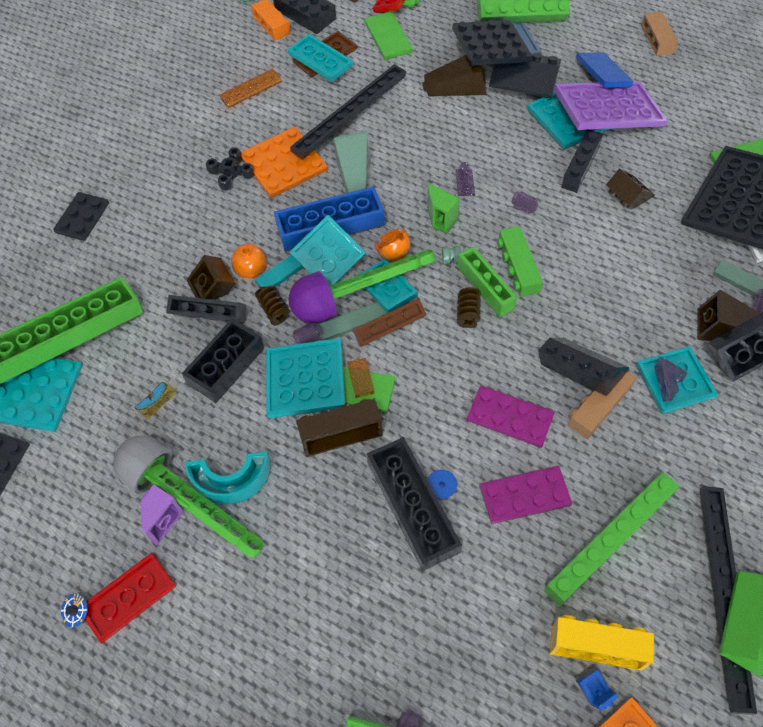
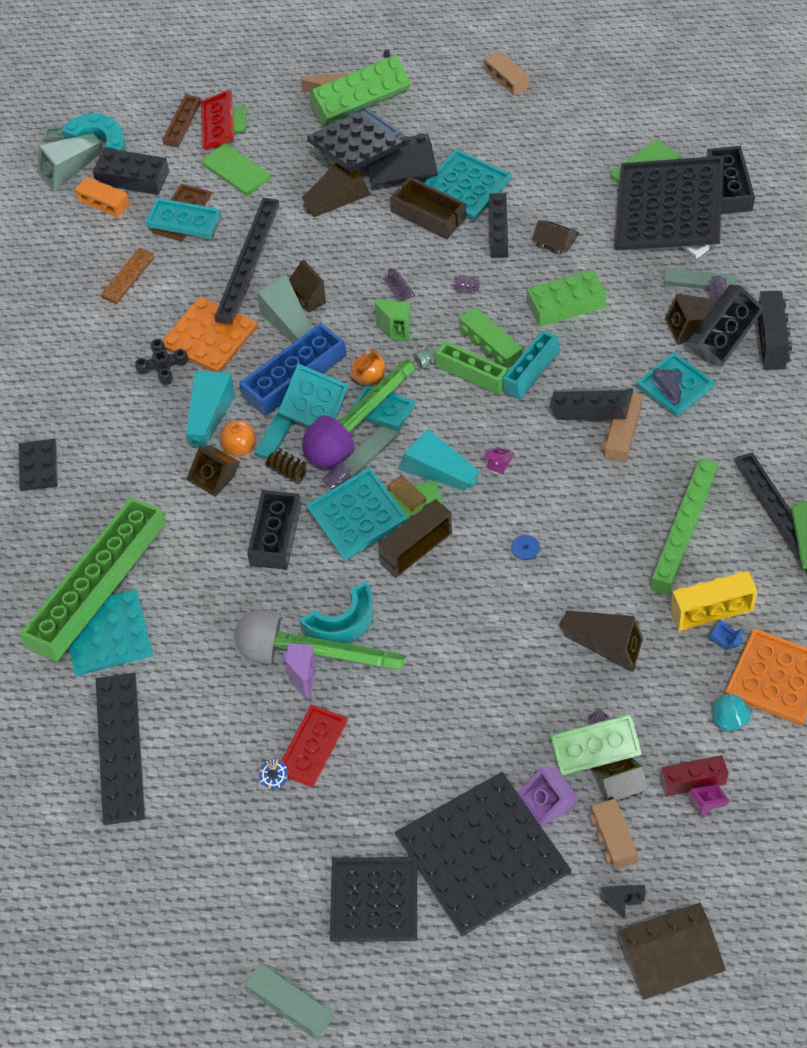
camera: 25 degrees left, 5 degrees down
(155, 400) = (229, 590): clear yellow slope -> none
(206, 308) = (228, 493): black brick -> none
(240, 220) = (209, 402): none -> teal slope
(383, 152) = (308, 287): none -> dark brown slope
(389, 322) = (403, 437): reddish brown plate -> none
(403, 358) = (438, 462): none -> teal slope
(413, 504) = (511, 568): black brick -> none
(464, 380) = (498, 459): none -> magenta slope
(468, 307) = (467, 396): dark brown piece -> none
(473, 630) = (606, 635): none -> dark brown slope
(510, 416) = (553, 471): magenta plate -> none
(525, 494) = (598, 526): magenta plate -> none
(527, 122) = (428, 207): none -> dark brown piece
(543, 301) = (531, 364): none -> teal brick
(604, 69) = (473, 129): blue tile -> none
(605, 108) = (497, 162): medium lavender plate -> none
(610, 251) = (566, 298): none -> bright green brick

